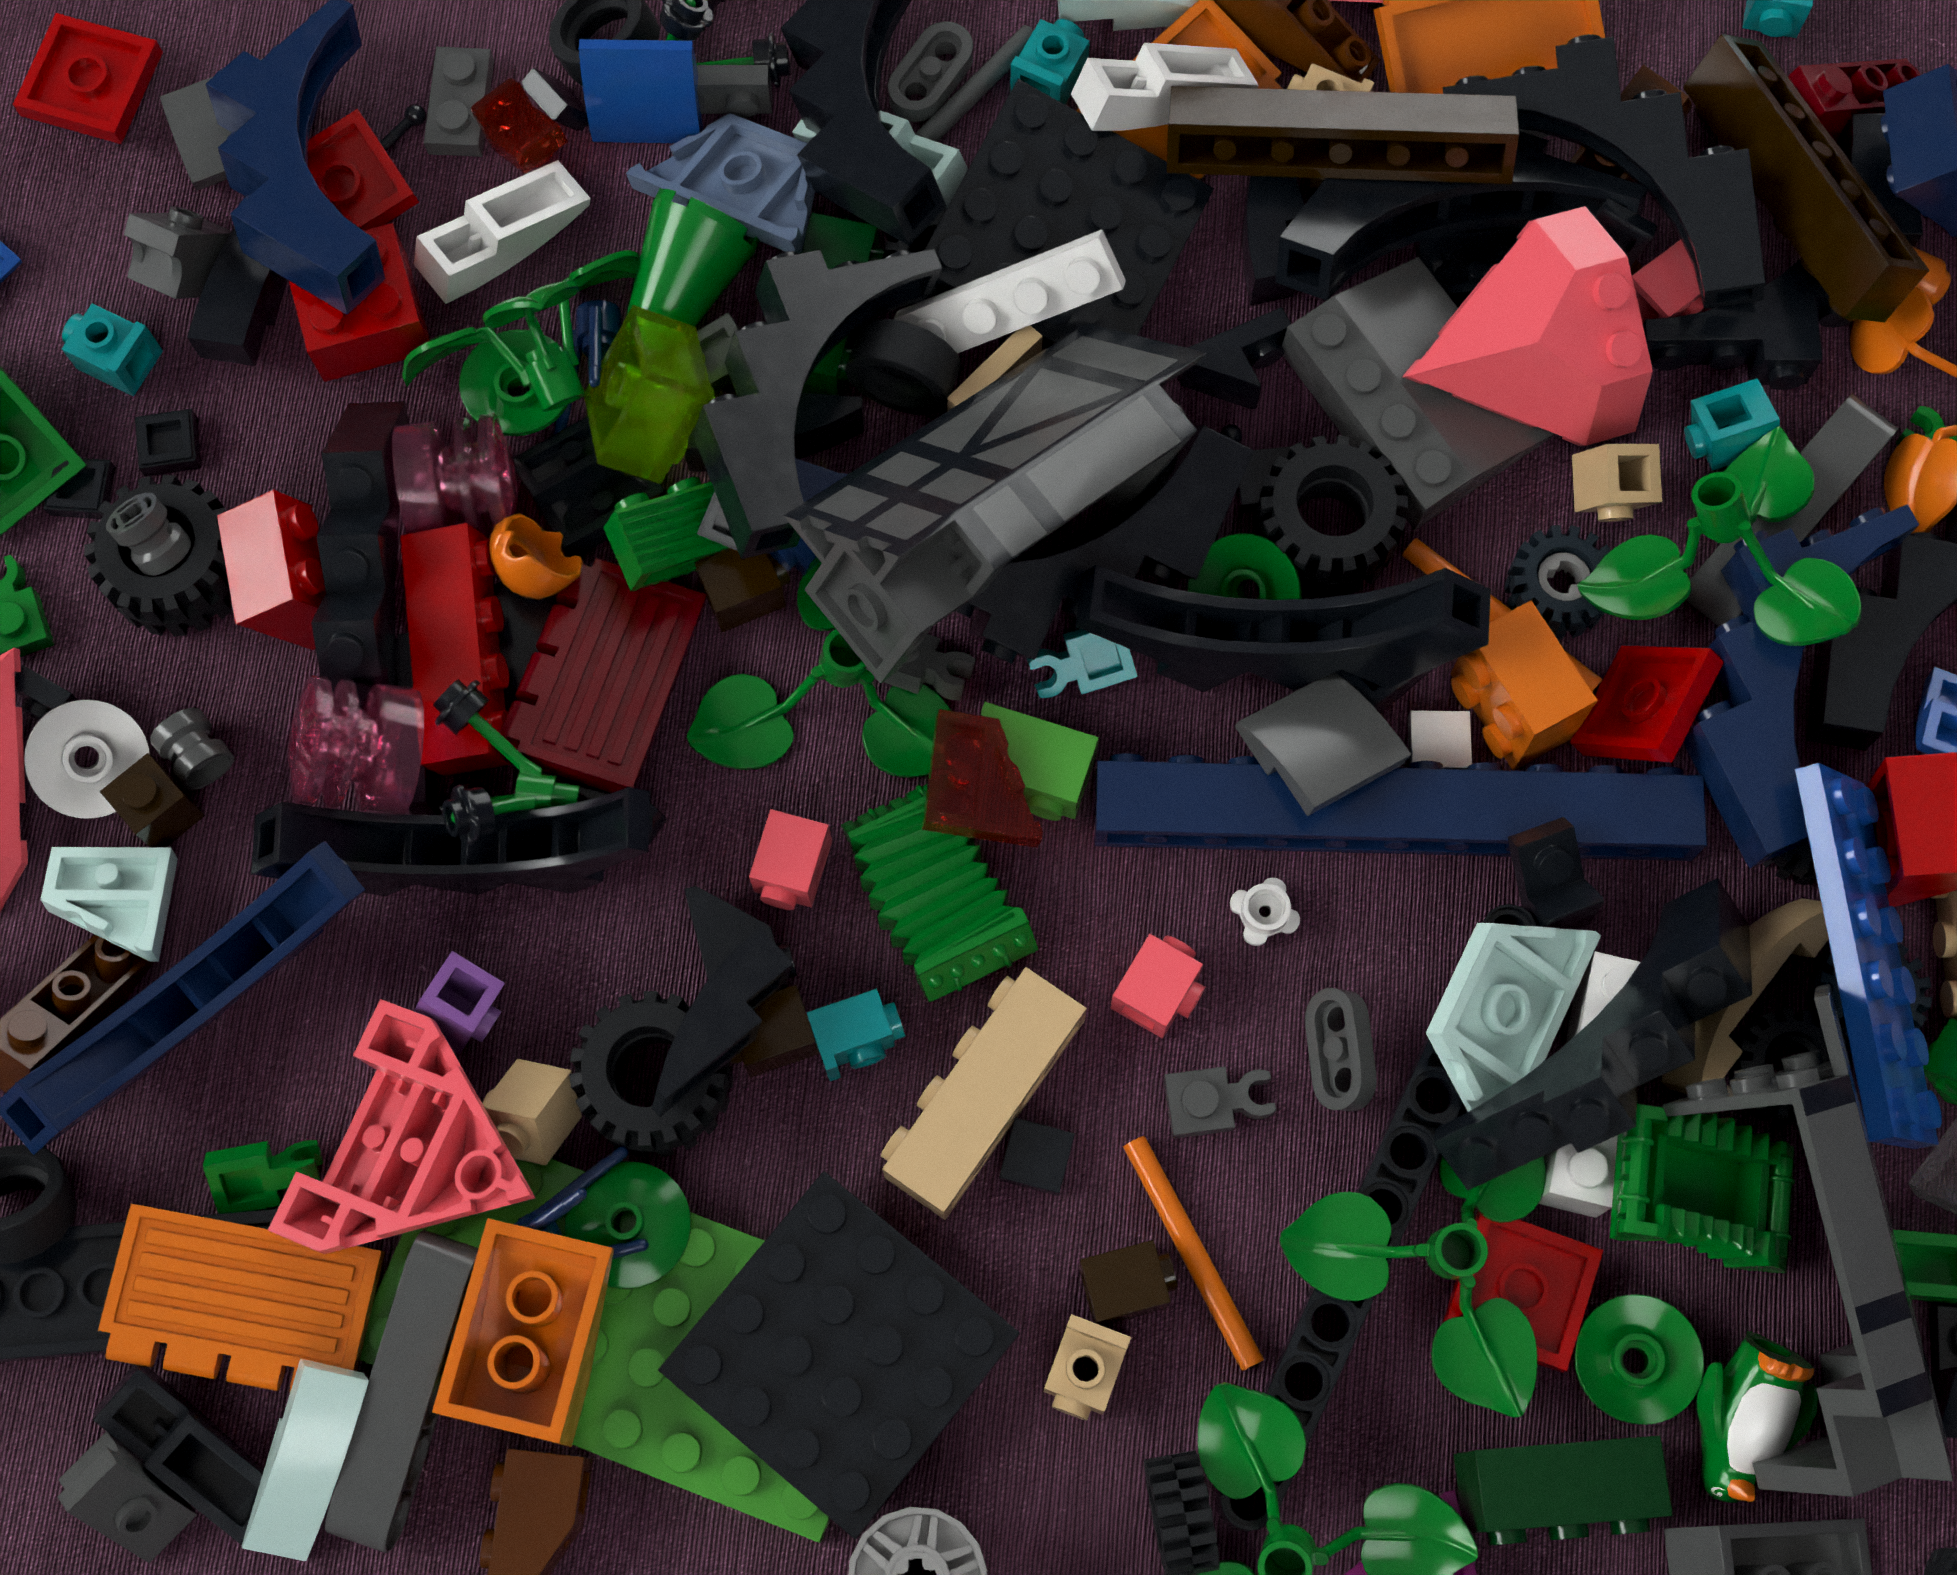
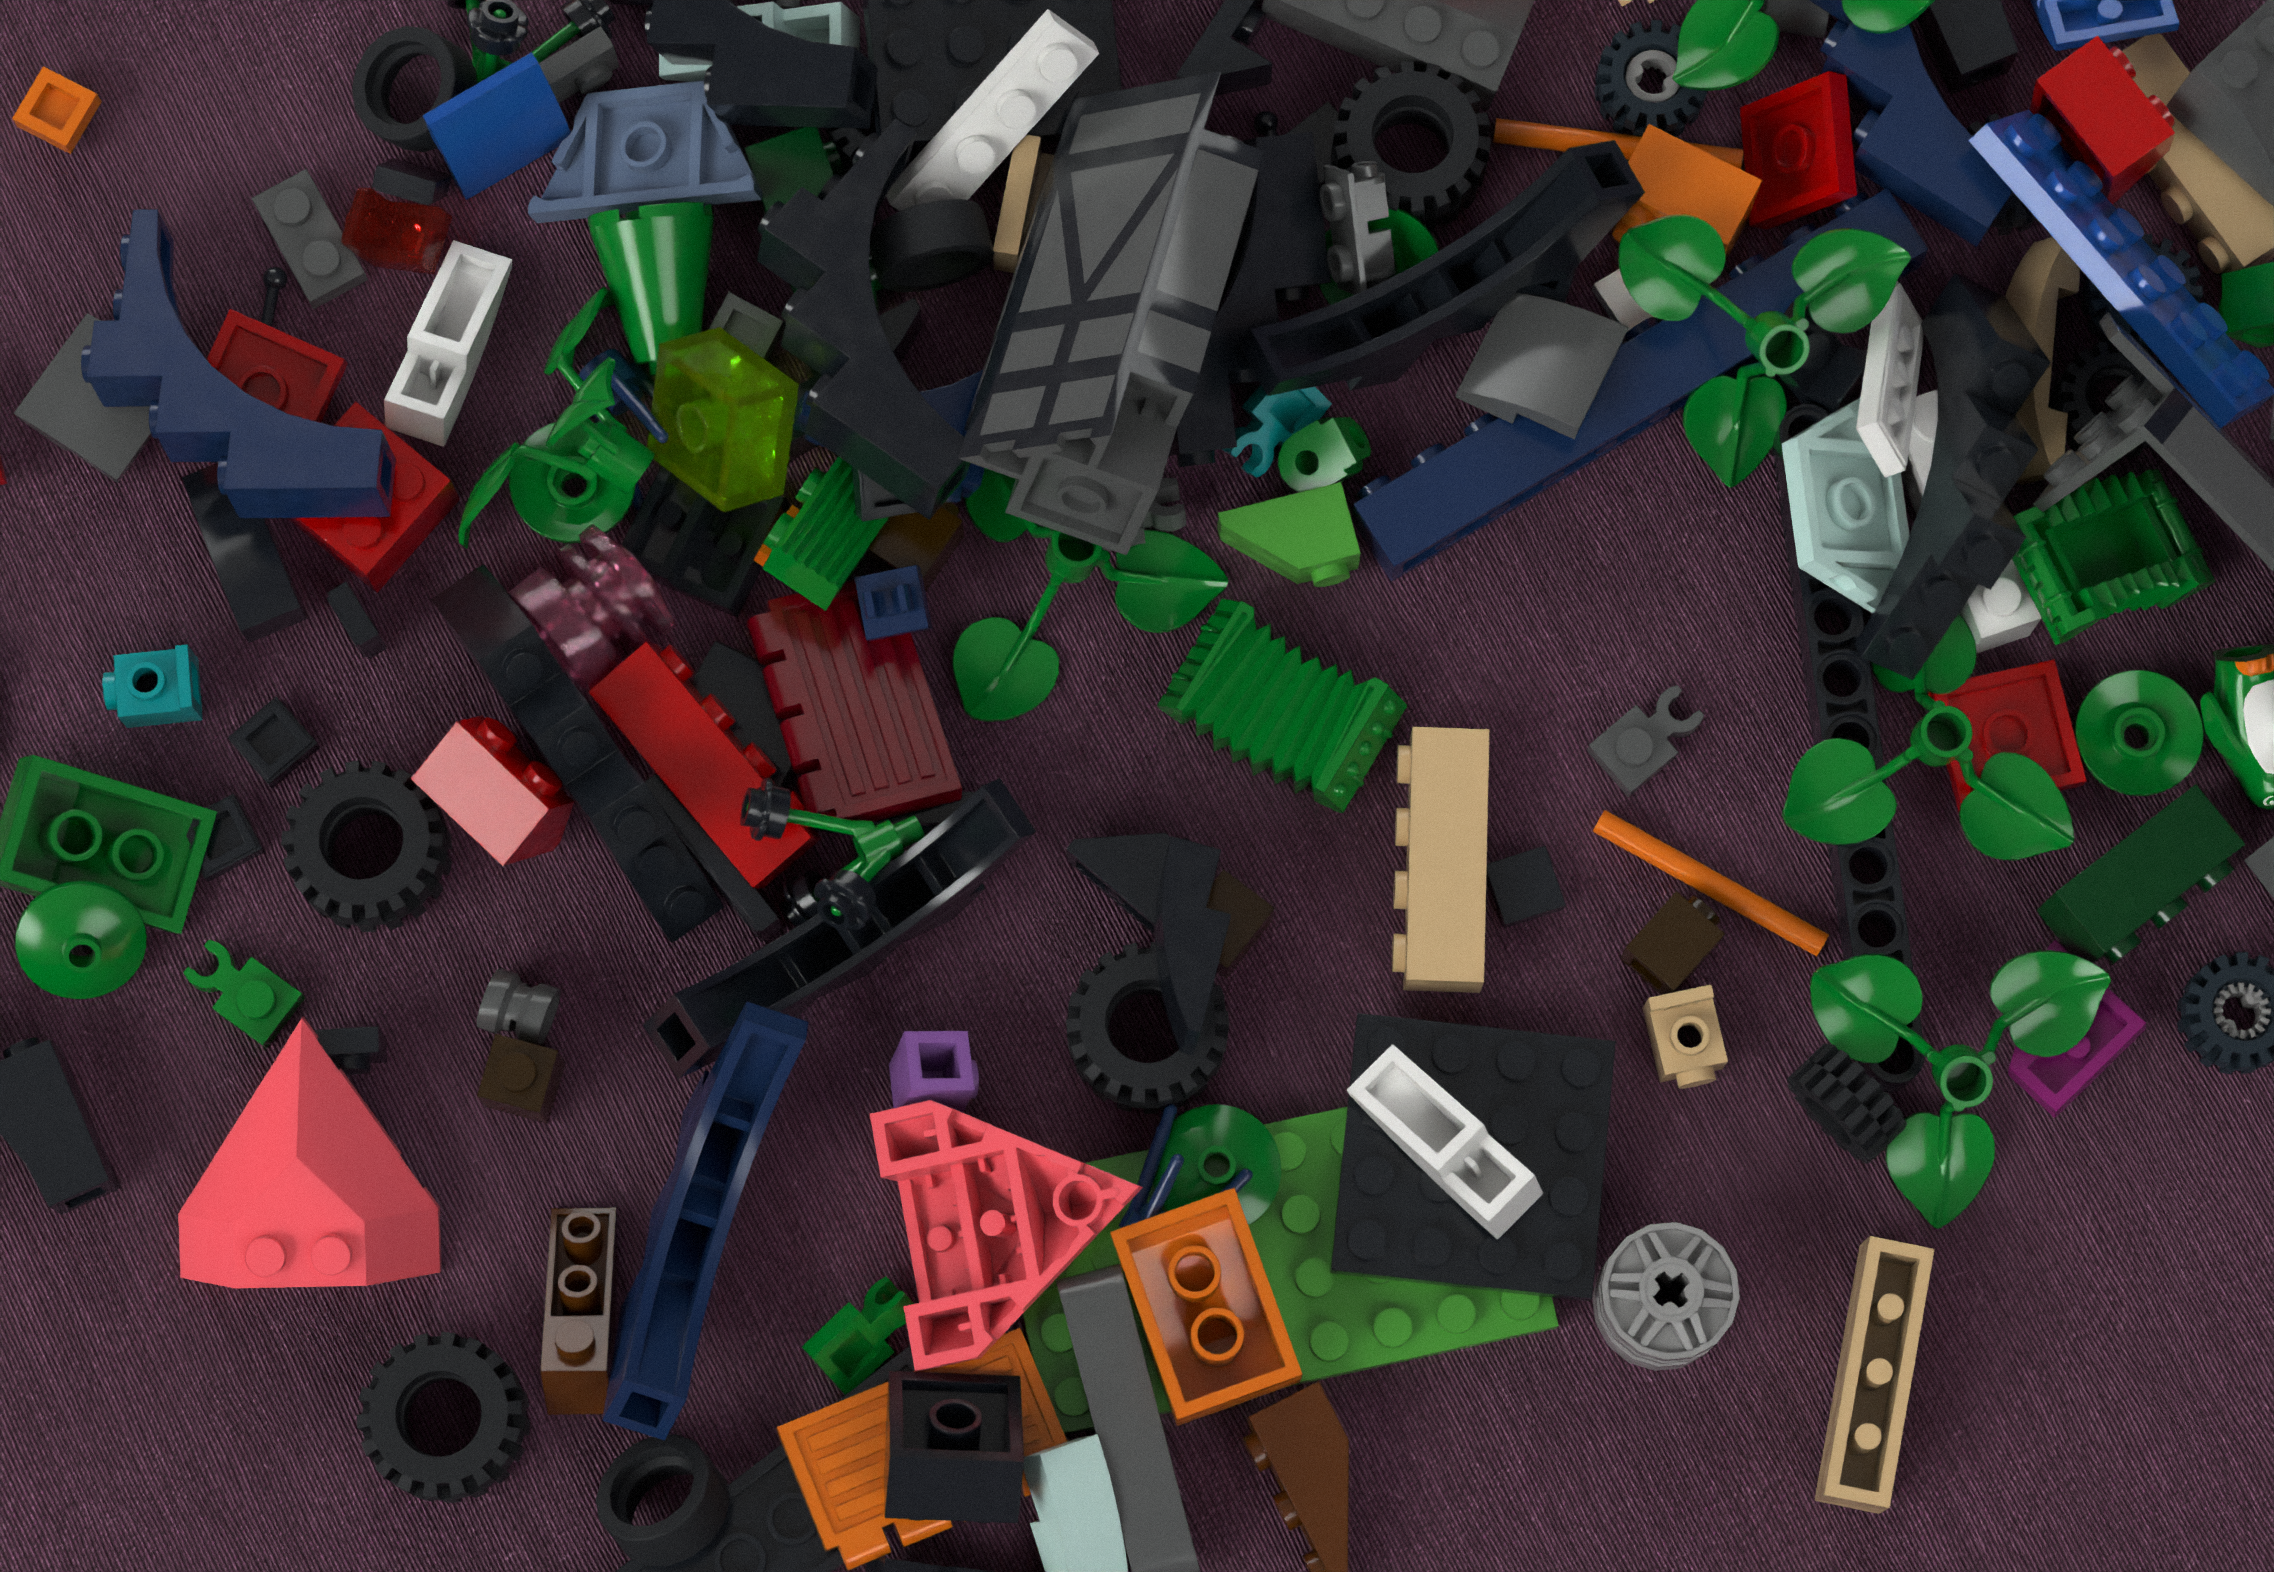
camera: 35 degrees left, 5 degrees up
(52, 750) = (454, 1068): white dish -> none
(113, 893) = (543, 1181): light aqua wing -> none
(149, 534) = (351, 835): dark grey wheel -> none
(173, 250) = (156, 555): dark grey brick -> none
(247, 1312) = (953, 1447): none -> black slope
(286, 387) = (355, 621): none -> black tile
(368, 746) = (698, 904): clear pink wheel -> none
(530, 558) = (719, 641): orange hair -> none
(533, 1110) = (1067, 1118): tan brick -> none
(682, 614) = (893, 603): none -> dark blue tile
(790, 860) = (1139, 764): coral brick -> none
(815, 1325) = (1446, 1141): none -> white slope
(855, 1031) = (1298, 878): teal brick -> none
(975, 784) = (1264, 592): clear red wing -> none
(1103, 709) = (1323, 453): none -> green piece
(1159, 985) = (1534, 669): coral brick -> none
(1247, 525) = (1348, 202): none -> dark grey hinge
(1270, 895) = (1575, 529): white plate -> none
(1339, 1051) = (1725, 630): dark grey plate -> none
(1604, 928) = (1891, 383): none -> white tile
(1615, 826) = (1844, 283): none -> green plant

